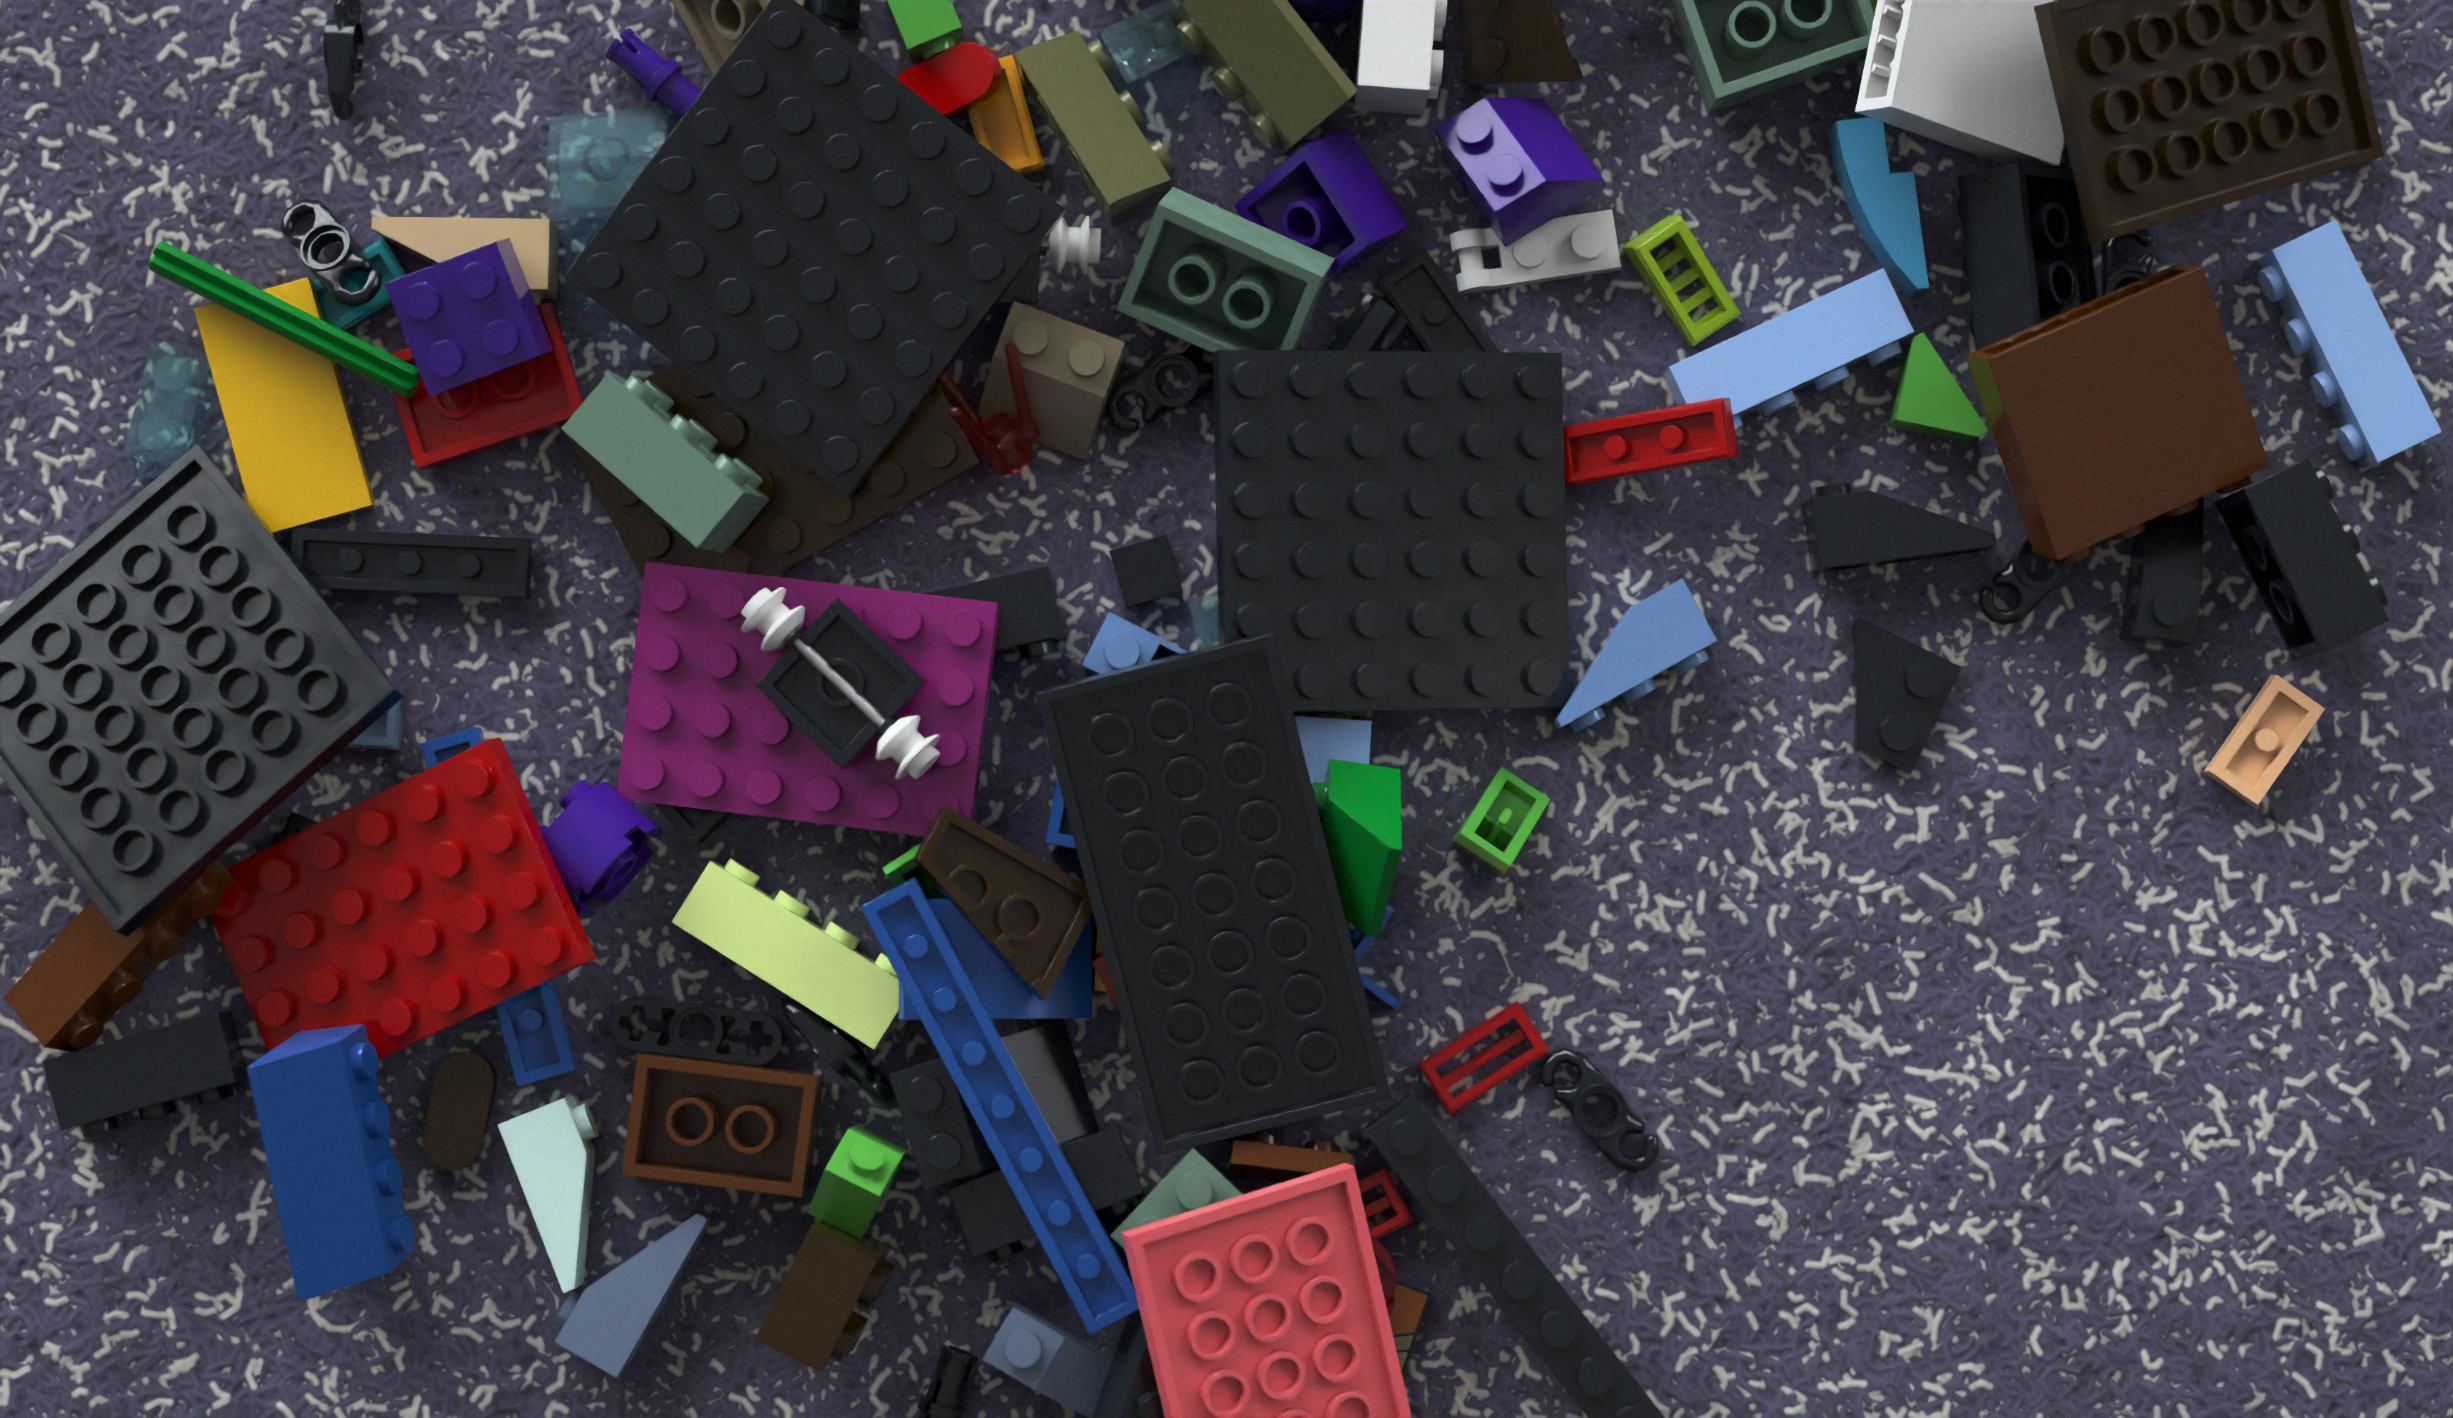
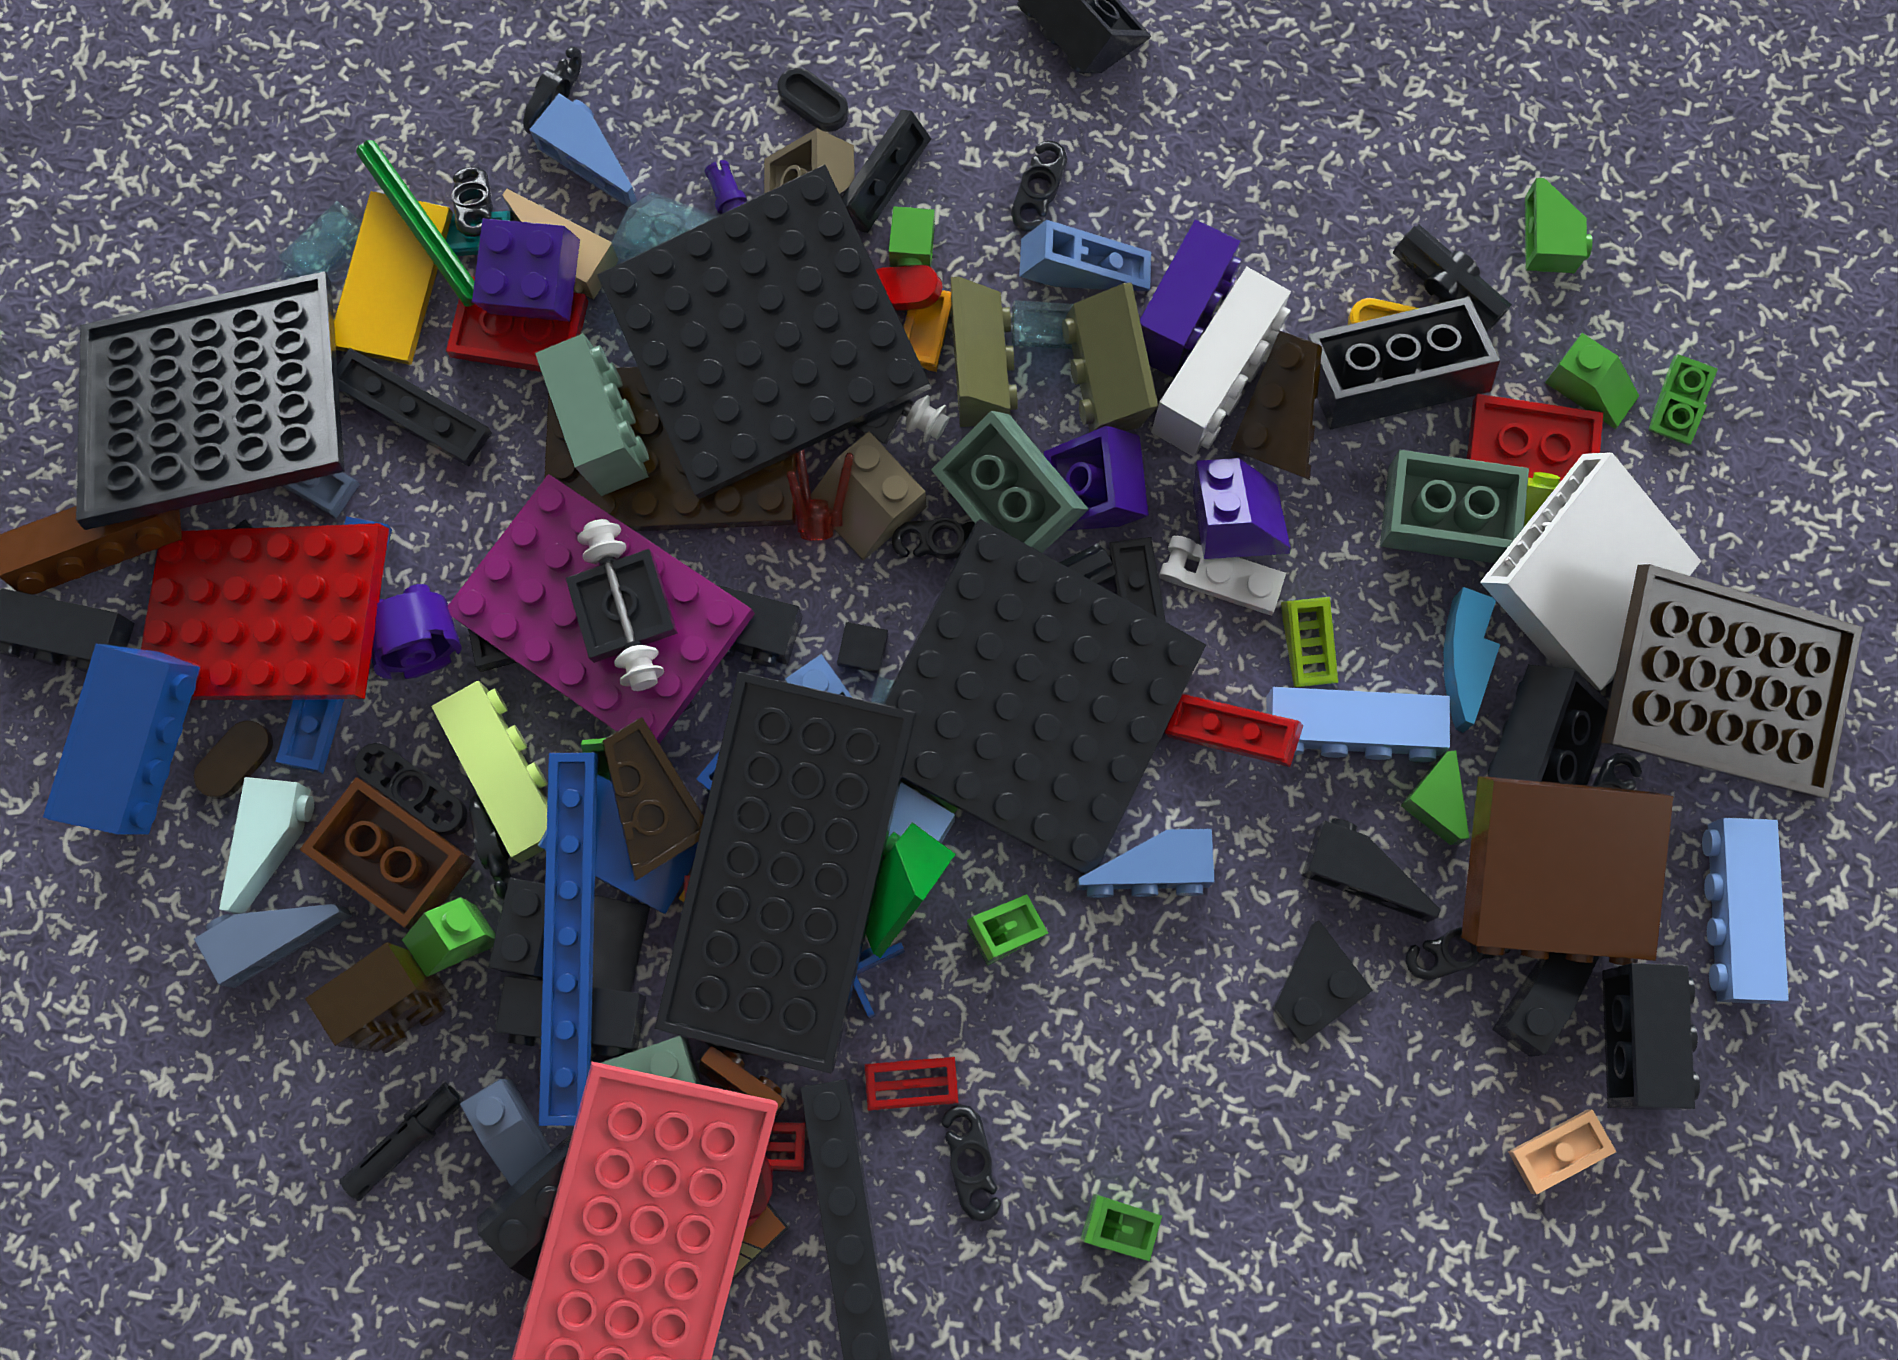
camera: 30 degrees right, 10 degrees down
(417, 101) = (575, 140): none -> medium blue slope
(1807, 1092) = (1121, 1227): none -> bright green slope

